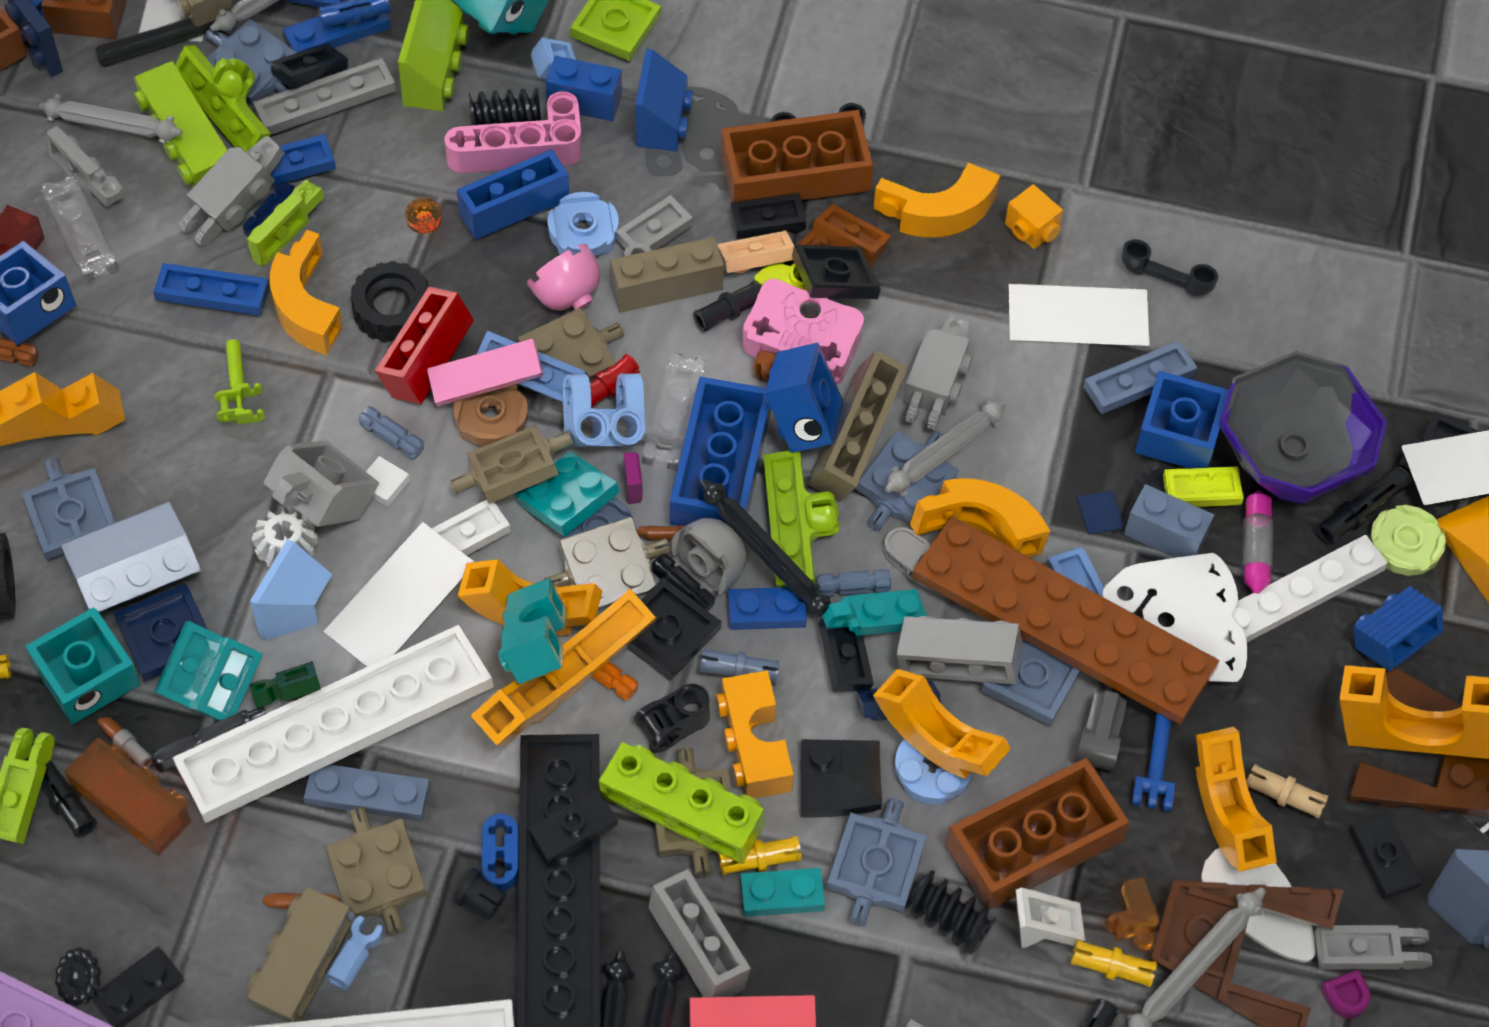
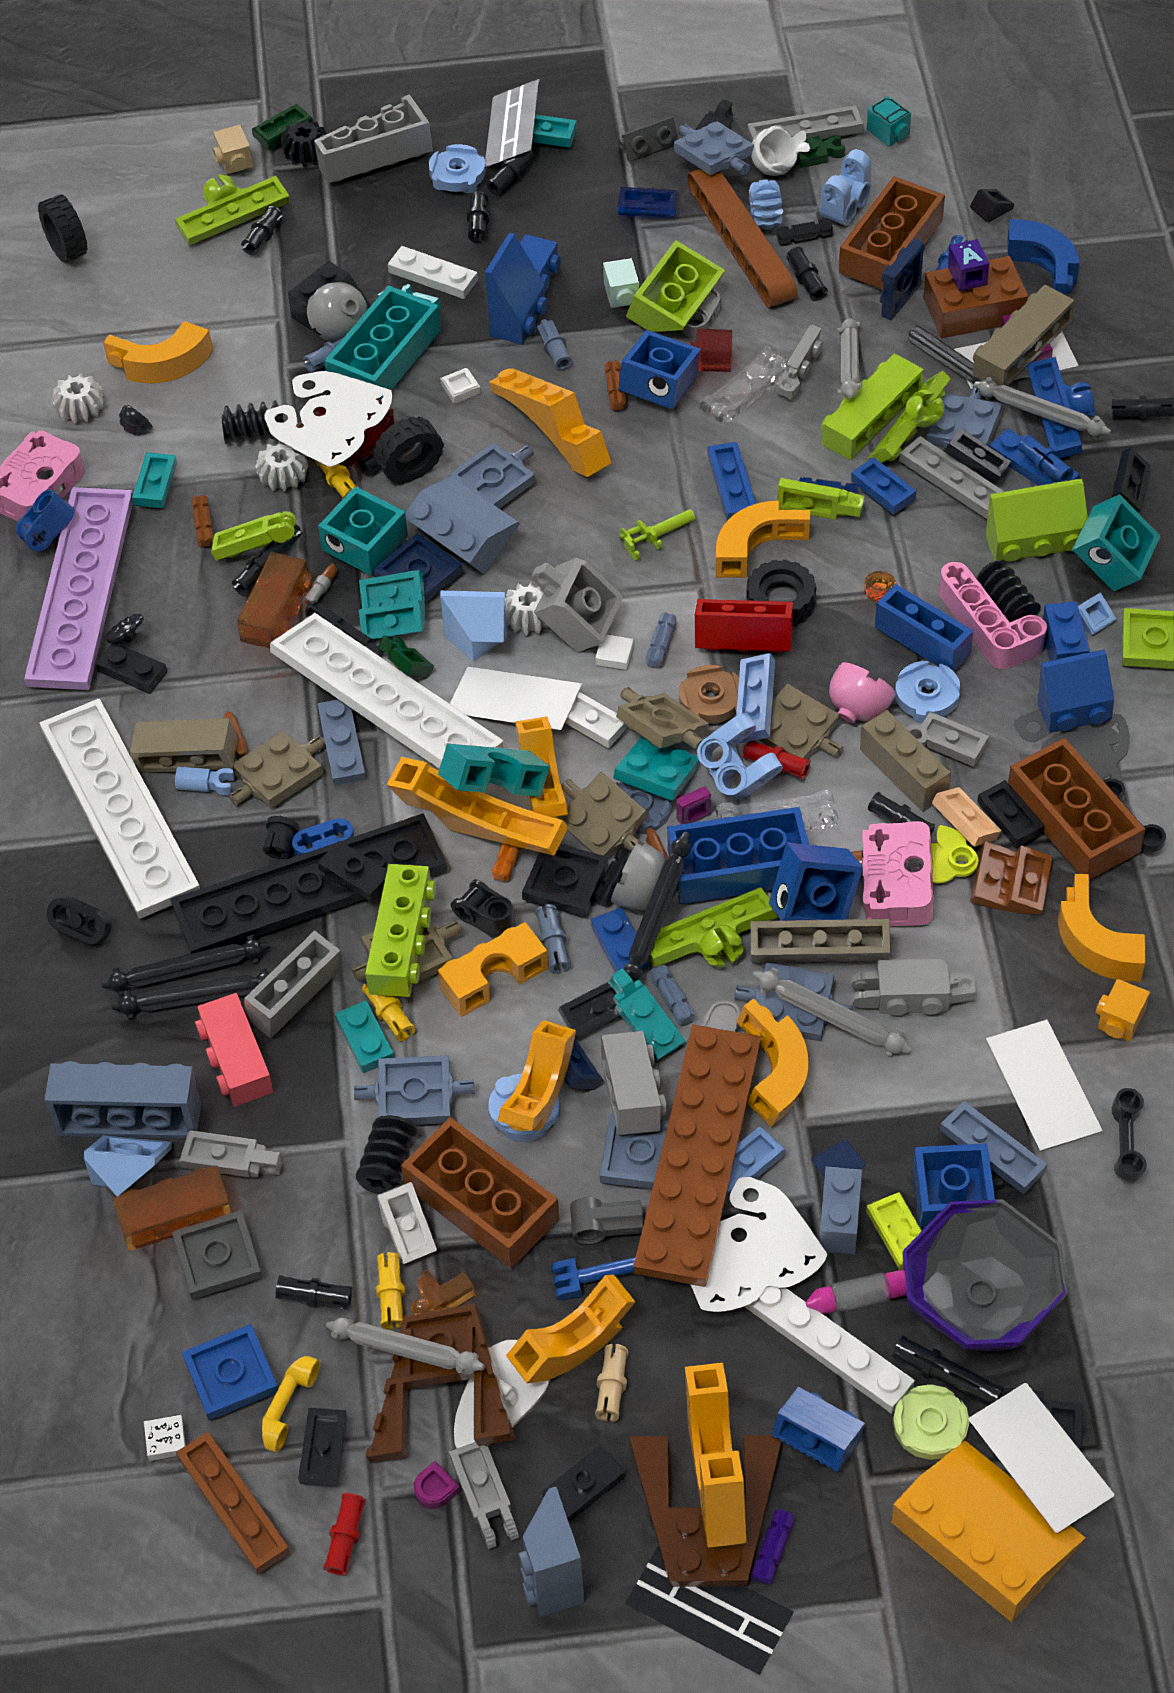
camera: 75 degrees right, 5 degrees down
(231, 189) = (825, 453): light grey hinge -> none
(485, 372) = (732, 668): bright pink tile -> none
(835, 272) = (967, 873): black tile -> none
(840, 777) = (483, 1042): black plate -> none

